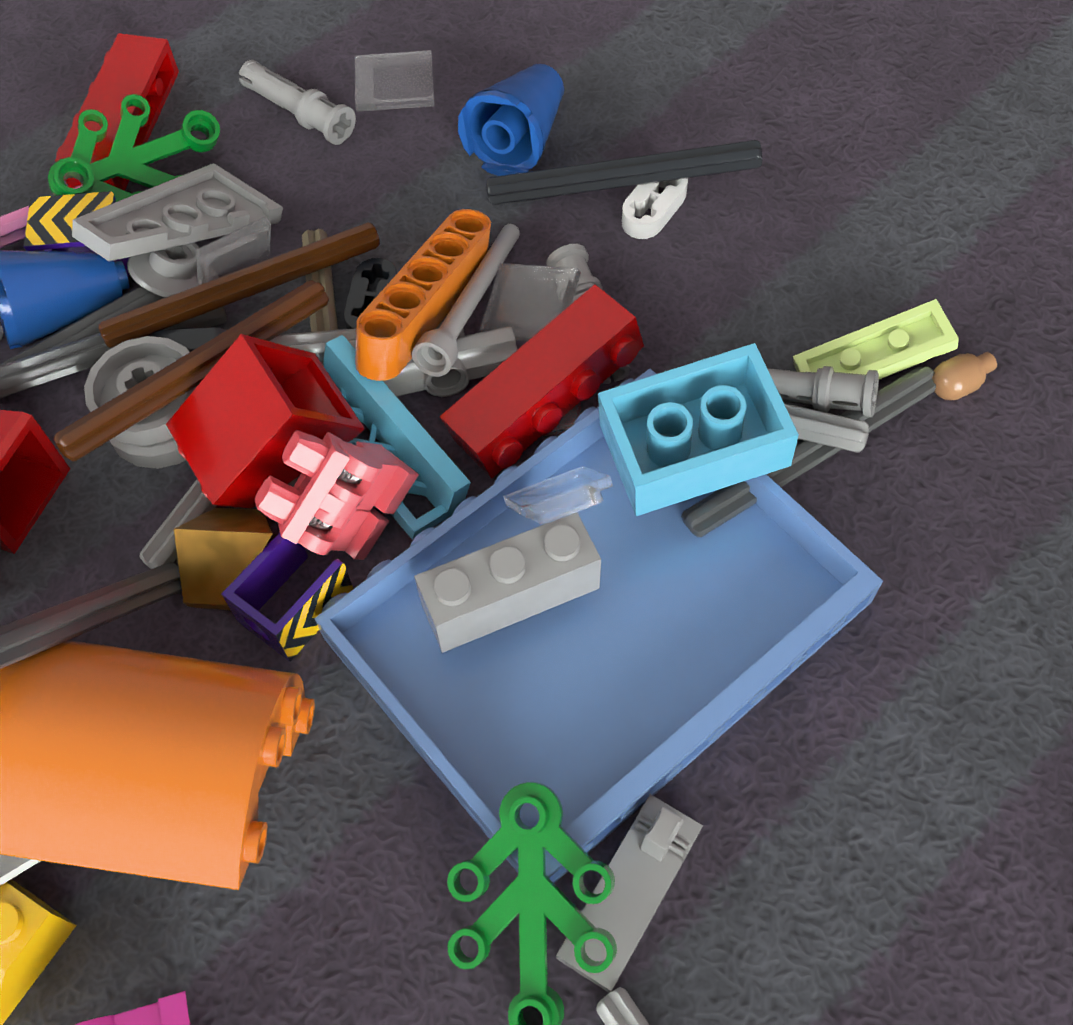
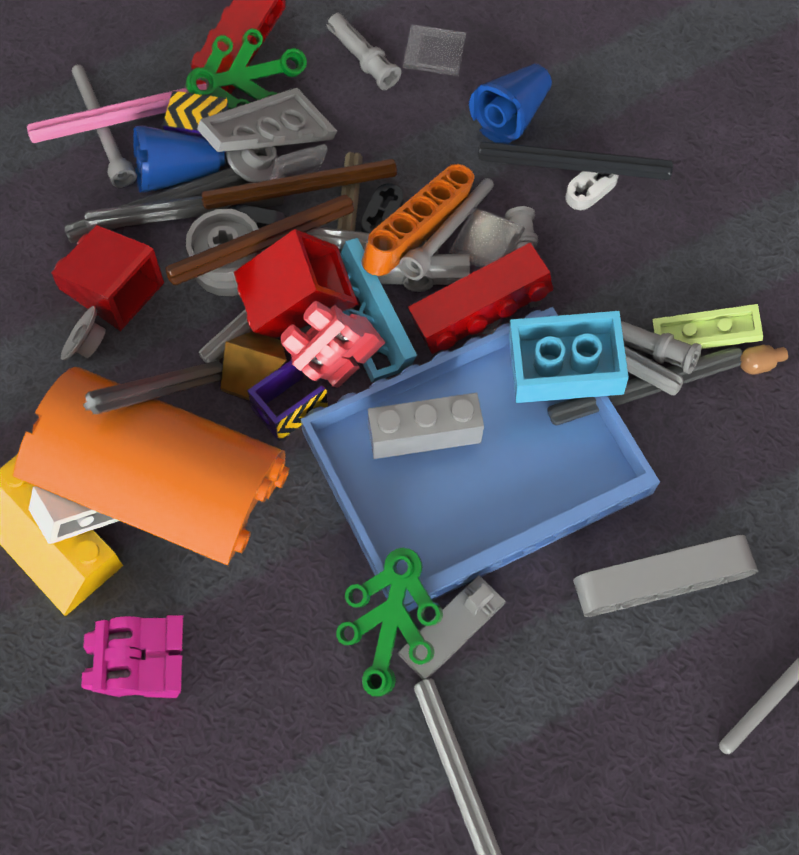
camera: 10 degrees right, 5 degrees up
(559, 495) = (469, 378): clear piece -> none
(930, 723) = (665, 575): none -> light grey beam

